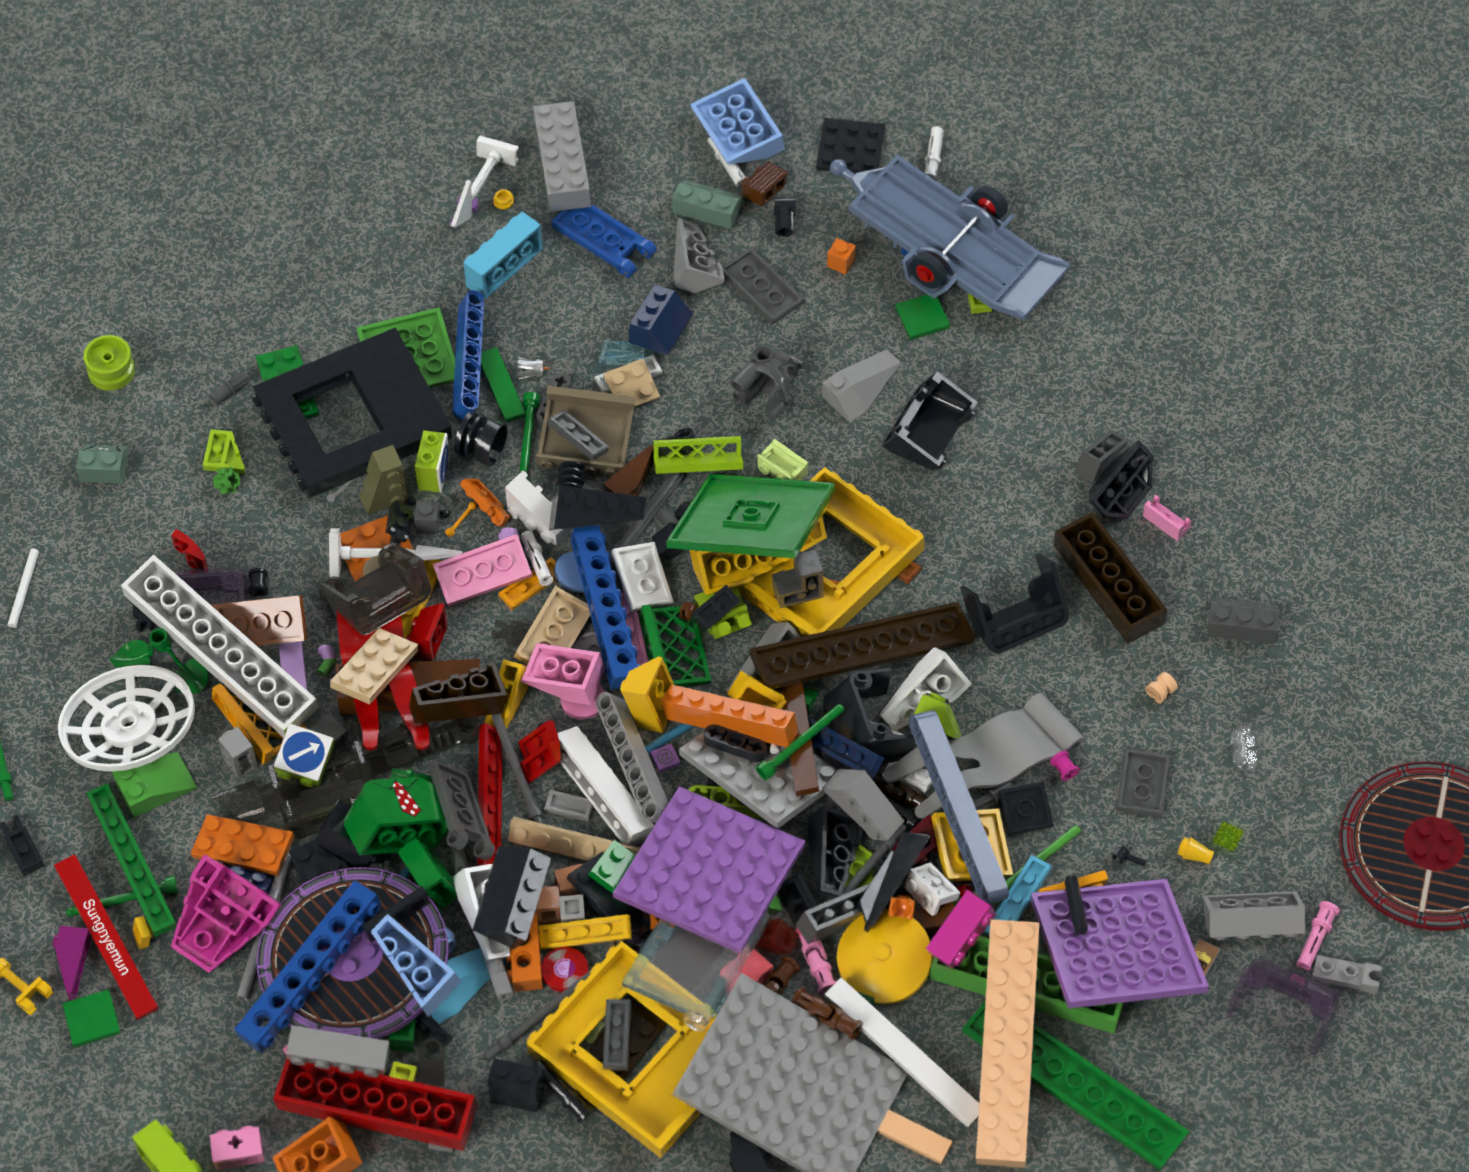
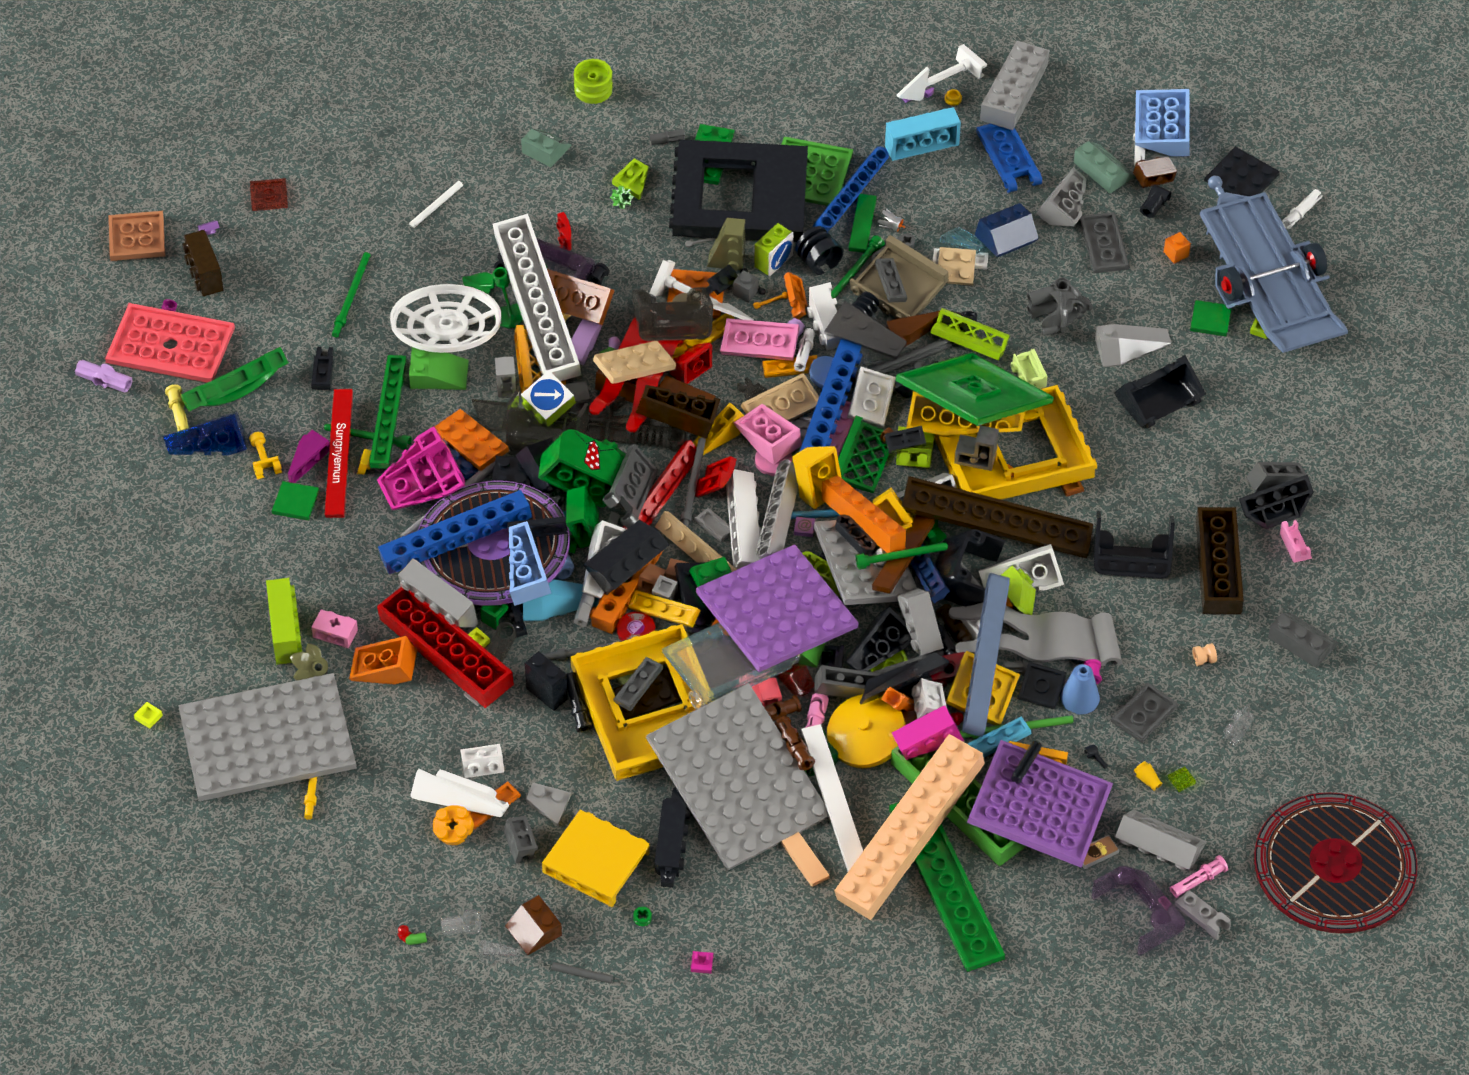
camera: 30 degrees right, 5 degrees down
(1070, 795) = (1080, 691): none -> medium blue cone

